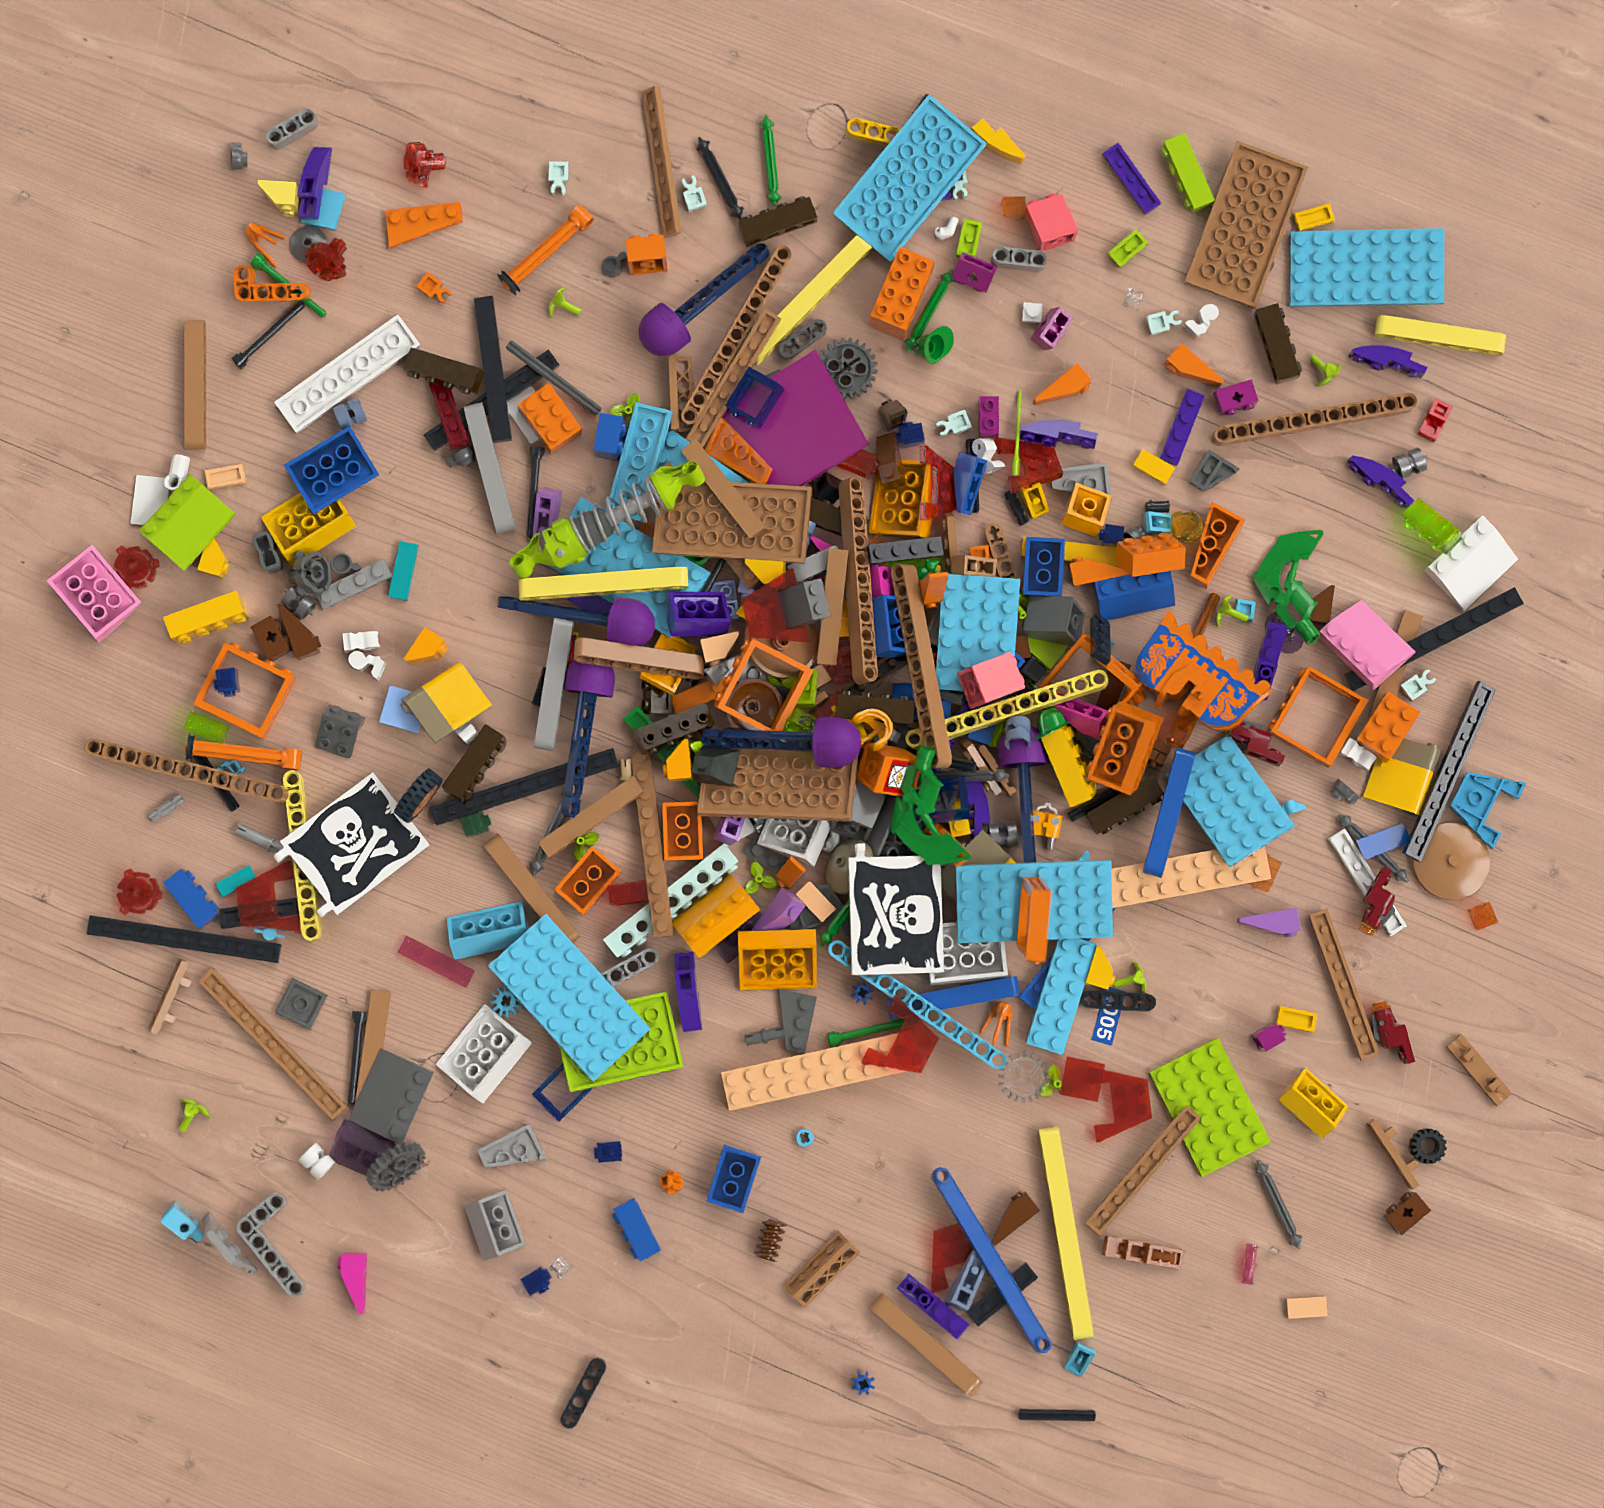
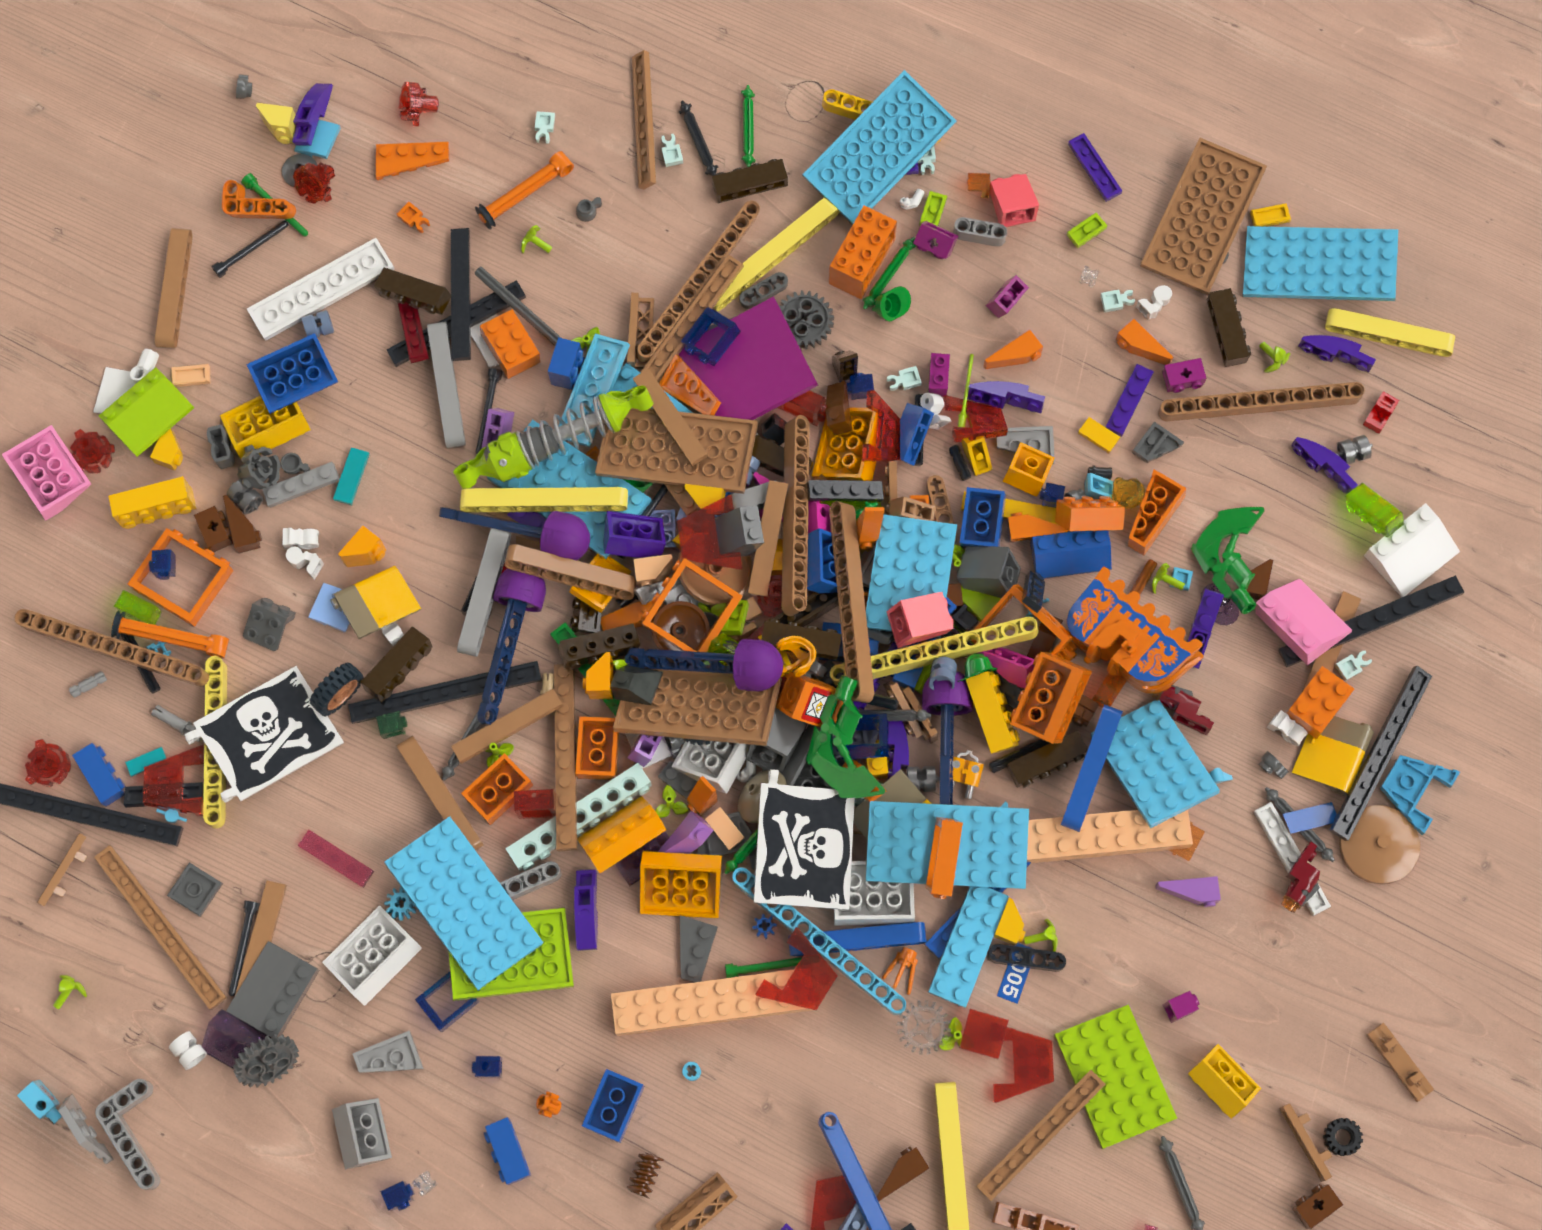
camera: 15 degrees right, 10 degrees down
(257, 233) = (252, 155): orange plant -> none
(288, 137) = (301, 58): light grey beam -> none
(353, 1272) = (210, 1172): dark pink slope -> none
(463, 457) = (422, 373): dark grey piece -> none
(486, 930) = (388, 830): medium azure slope -> none
(646, 254) = (619, 198): orange brick -> none
(665, 331) = (629, 268): piece -> none
(764, 1035) = (660, 962): dark grey pin -> none
(998, 142) = (969, 125): yellow slope -> none
(1032, 313) = (989, 283): white plate -> none
(1187, 173) = (1149, 166): lime brick -> none
(1296, 1019) = (1211, 992): yellow tile -> none
(1343, 984) = (1262, 961): medium nougat plate -> none
(1360, 703) = (1269, 660): orange window -> none
(1390, 1034) = (1308, 1015): dark red plate -> none
(1483, 915) = (1410, 902): clear orange panel -> none

